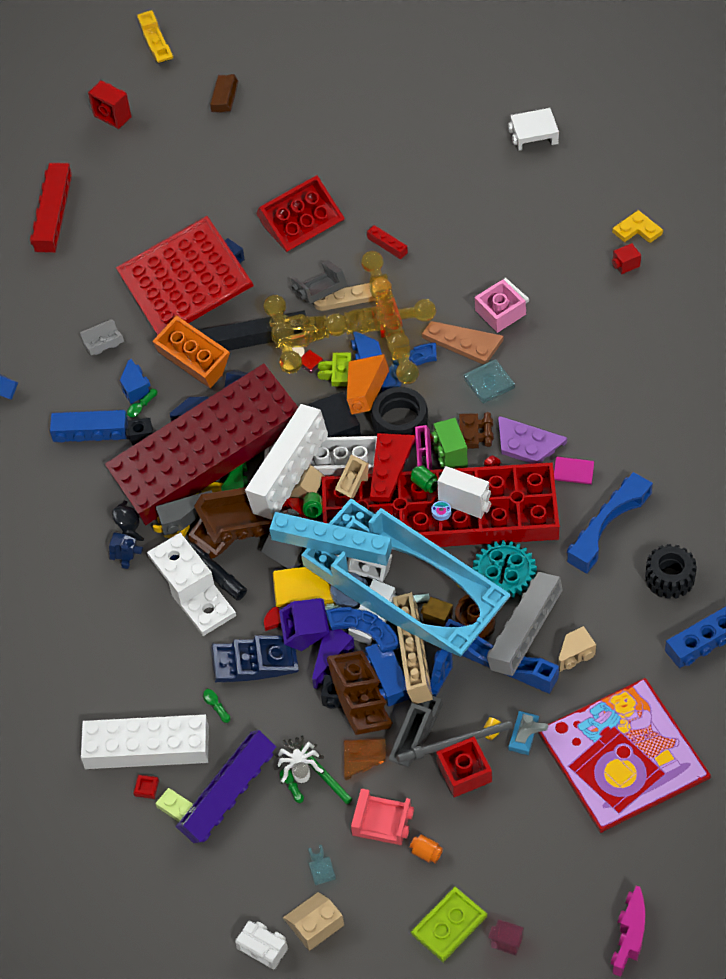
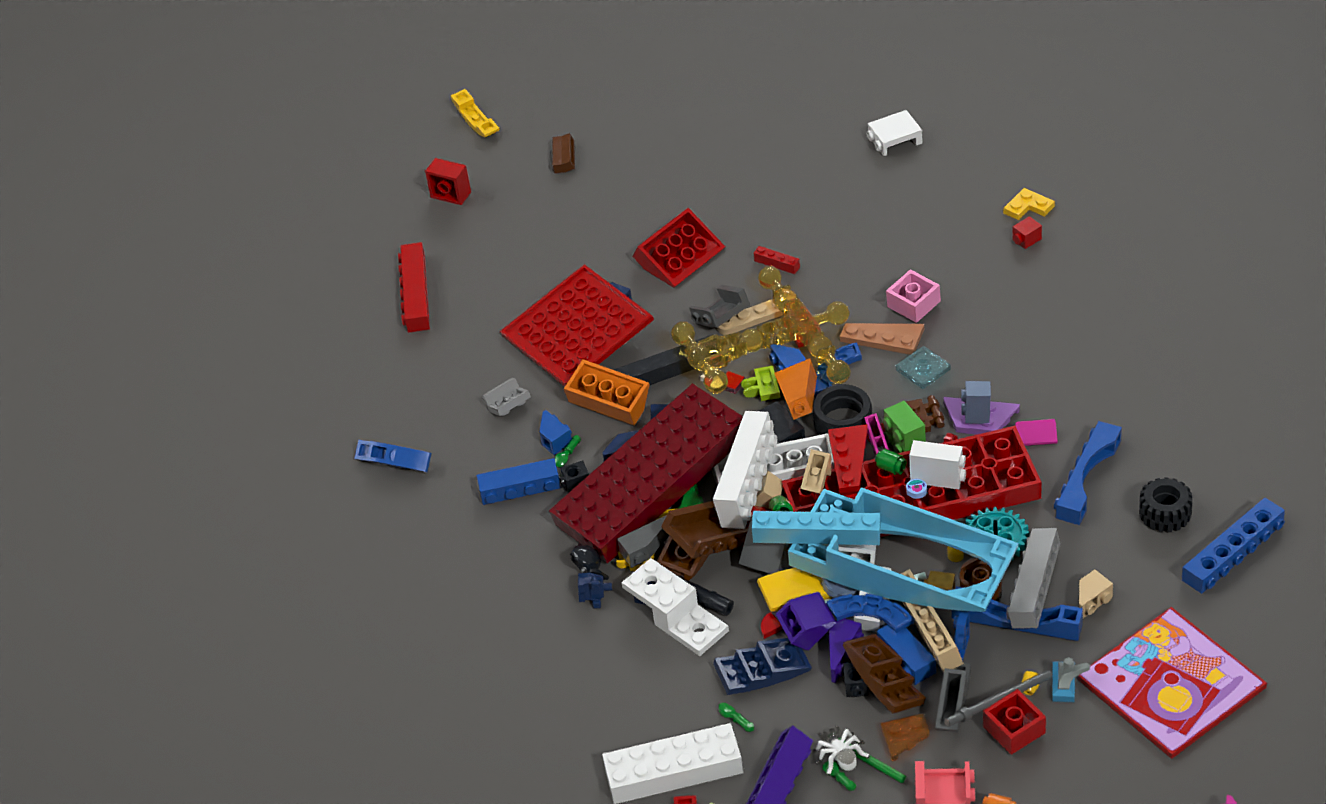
camera: 10 degrees left, 10 degrees down
(524, 429) = (977, 402): none -> sand blue brick

